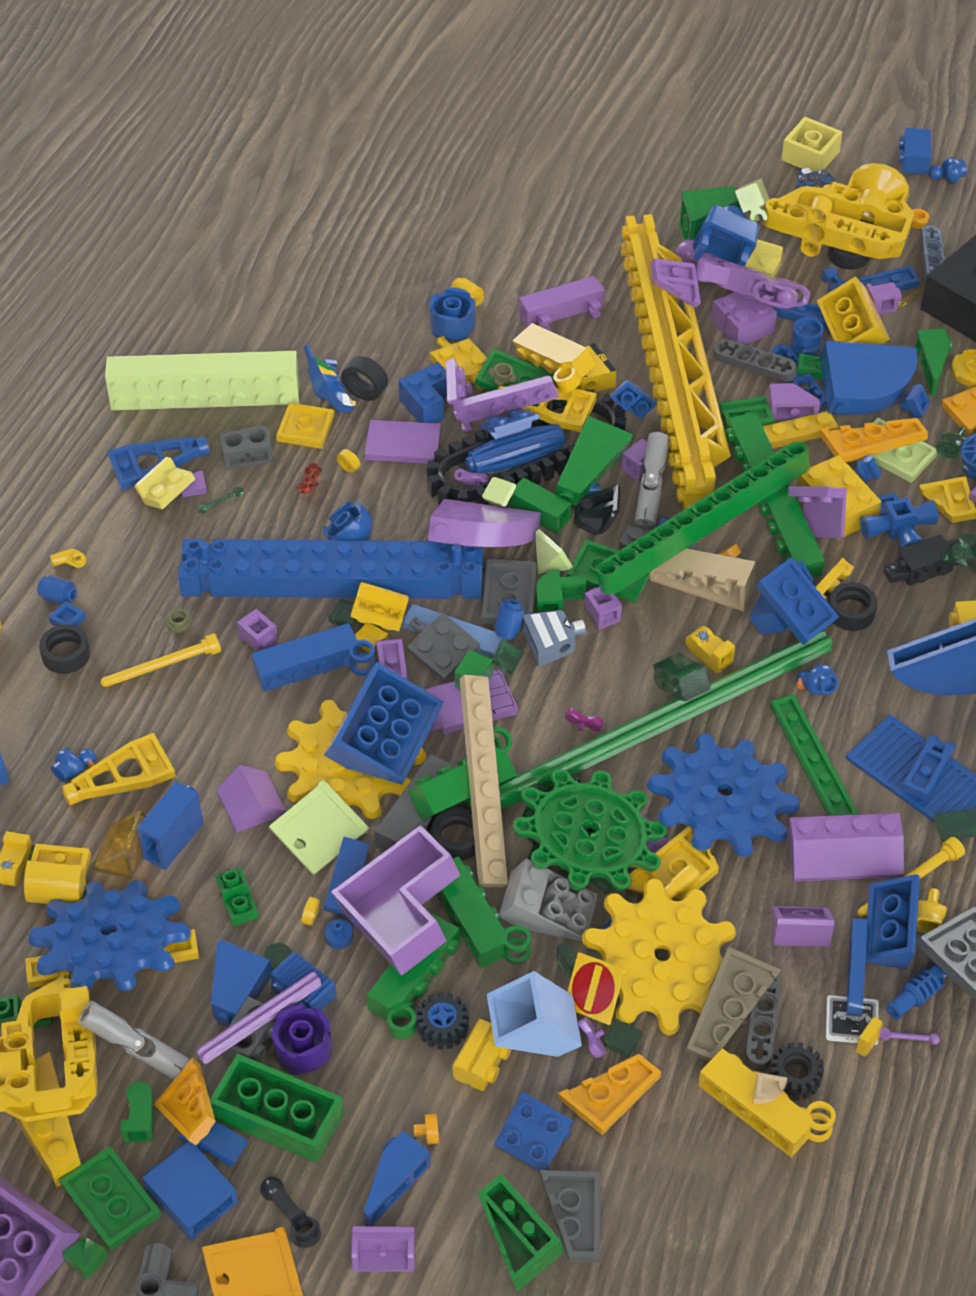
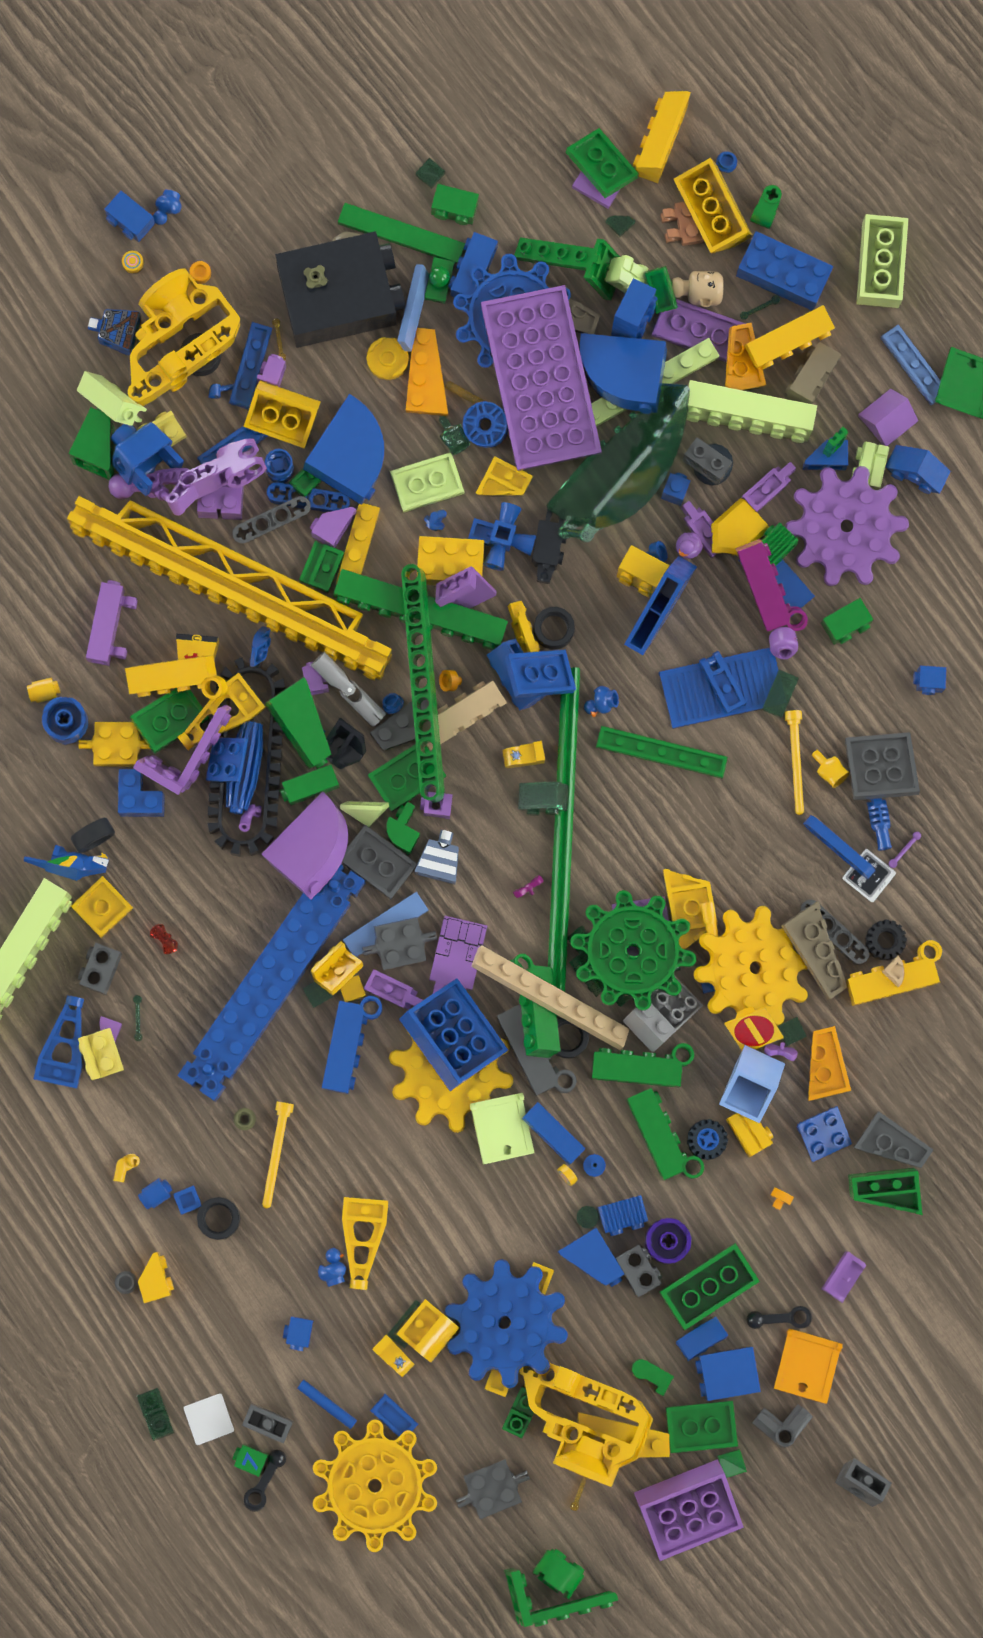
camera: 65 degrees left, 30 degrees up
(117, 1031) = (611, 1354): light grey piece -> none
(121, 847) = (427, 1274): clear yellow slope -> none
(170, 825) = (440, 1231): blue brick -> none
(188, 1103) = (674, 1344): light orange wing -> none
(236, 896) = (520, 1216): green slope -> none
(250, 798) = (443, 1160): medium lavender slope -> none
(257, 631) = (289, 1068): medium lavender brick -> none
(258, 1017) = (640, 1261): axle -> none
(348, 461) = (167, 899): yellow tile -> none
(349, 523) = (241, 943): blue cylinder -> none
(389, 895) = (606, 1127): medium lavender piece -> none
(398, 1169) = (797, 1237): blue slope -> none
(402, 441) = (171, 843): medium lavender tile -> none
(474, 665) = (445, 941): green brick -> none
(498, 492) = (286, 810): yellowish green slope -> none
(502, 374) = (170, 724): olive plate -> none
(507, 656) = (436, 903): clear green tile -> none
(509, 619) = (411, 882): blue brick -> none
(566, 958) = (716, 1029): clear green tile -> none
(677, 279) = (172, 531): medium lavender wing -> none
(712, 816) = (650, 859): blue plate -> none
(802, 926) = (783, 856): medium lavender slope -> none
(811, 145) = (66, 296): light yellow brick -> none
(846, 847) = (748, 786): medium lavender slope -> none
(869, 1036) = (894, 877): yellow tile -> none
(872, 438) = (411, 504): light orange wing -> none
(892, 921) = (825, 800): blue slope -> none
(916, 401) = (396, 431): blue tile -> none
(929, 255) = (250, 299): sand blue beam -> none
(932, 353) = (357, 380): green slope -> none

